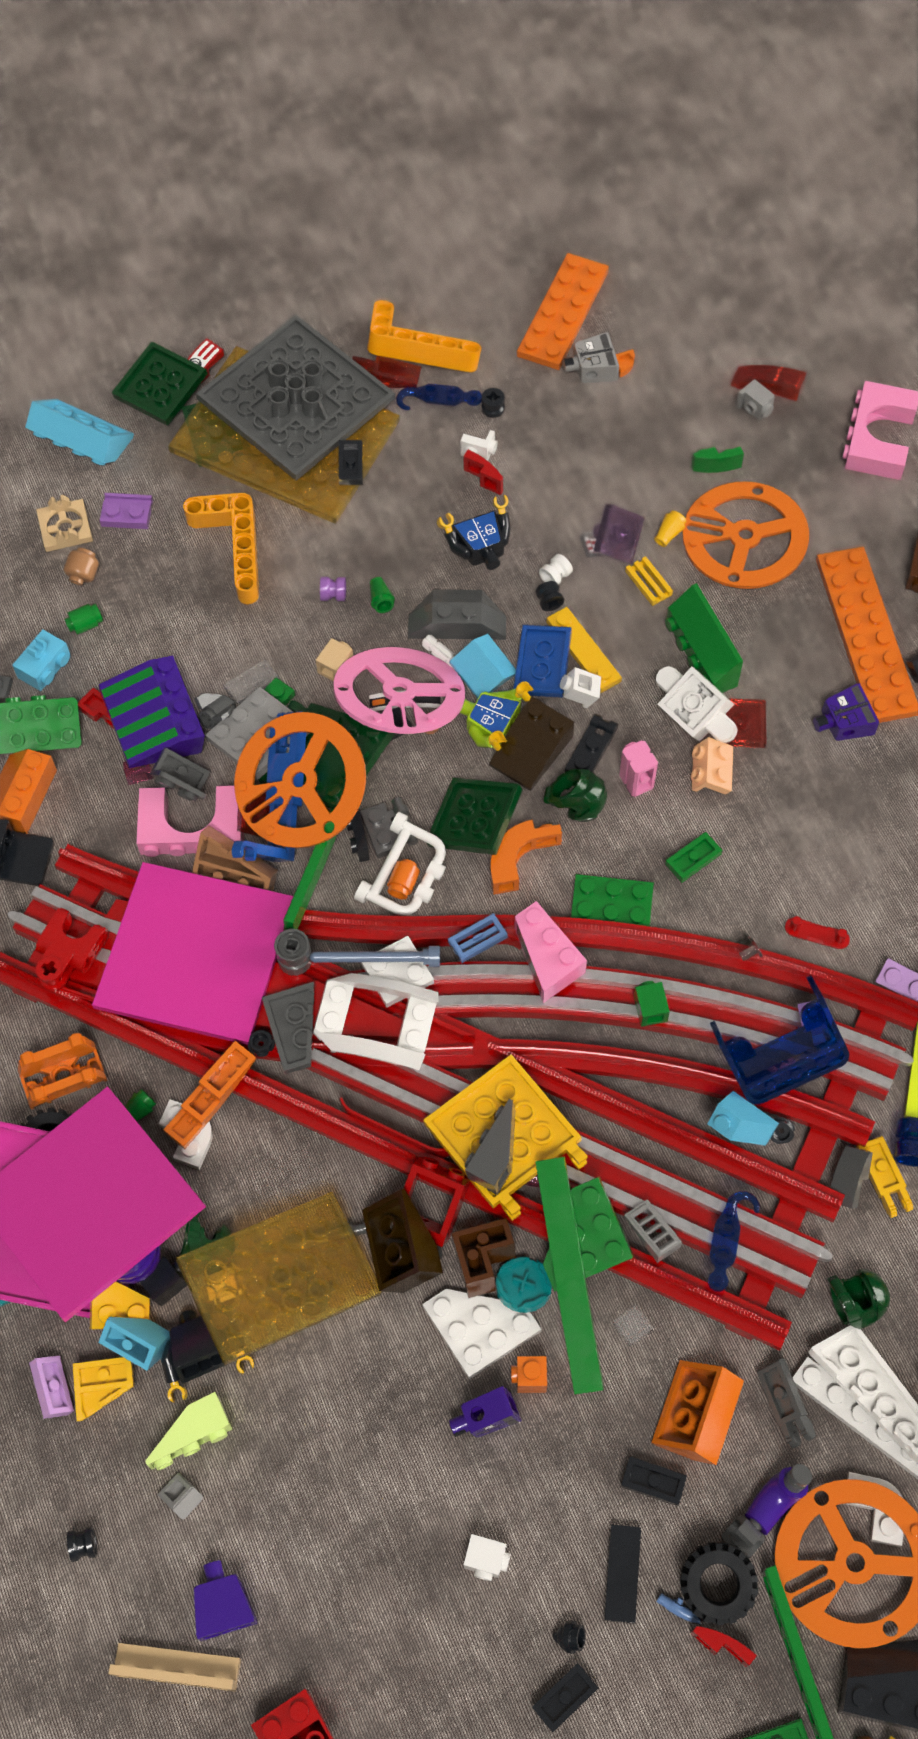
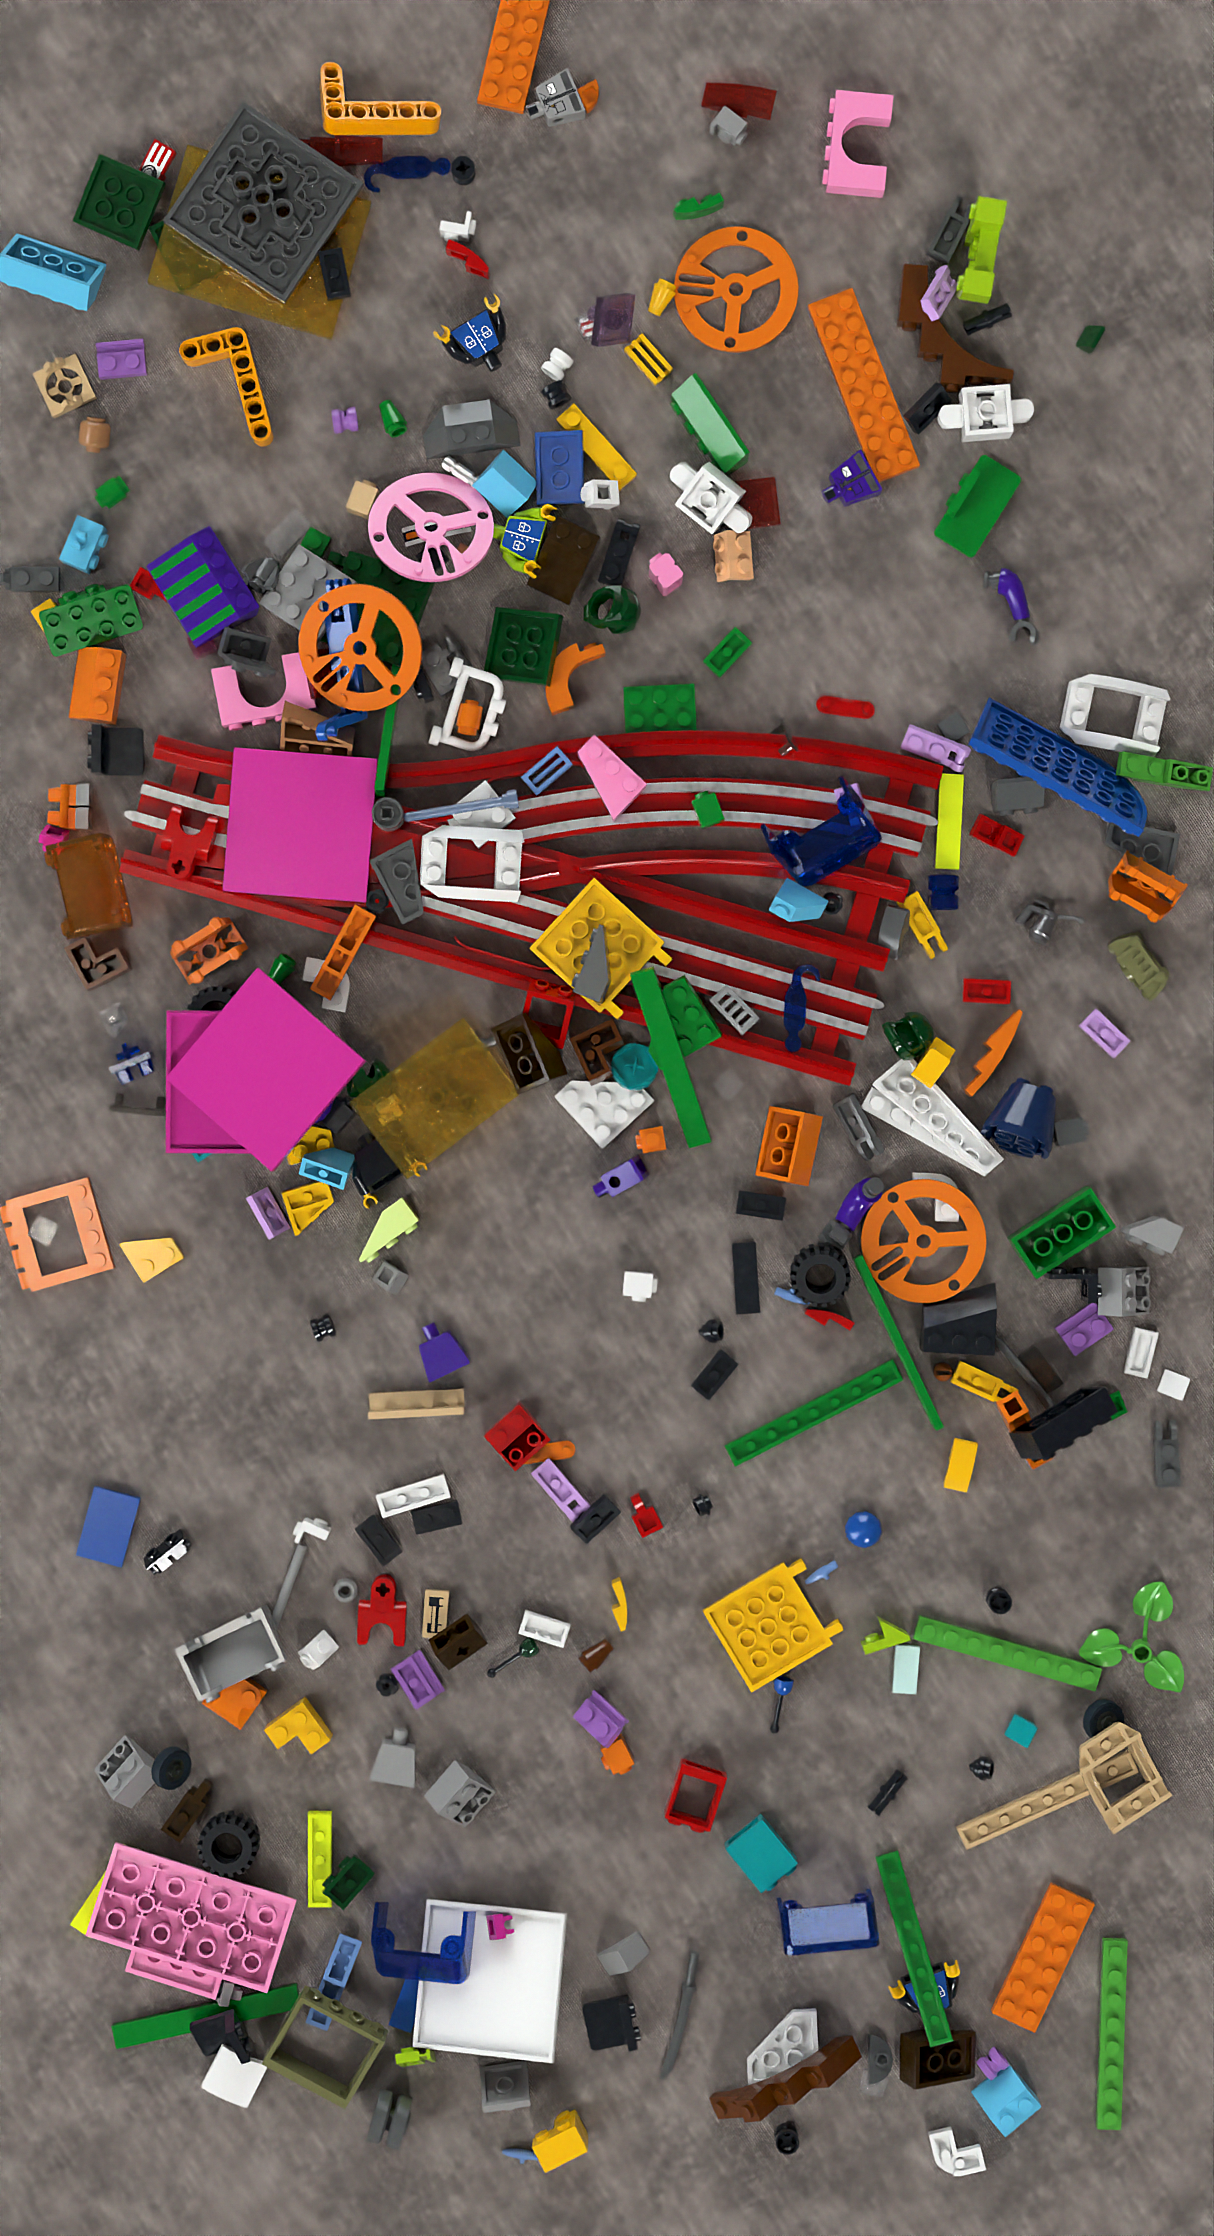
camera: 10 degrees left, 25 degrees up
(885, 1337) = (933, 1062): none -> yellow slope

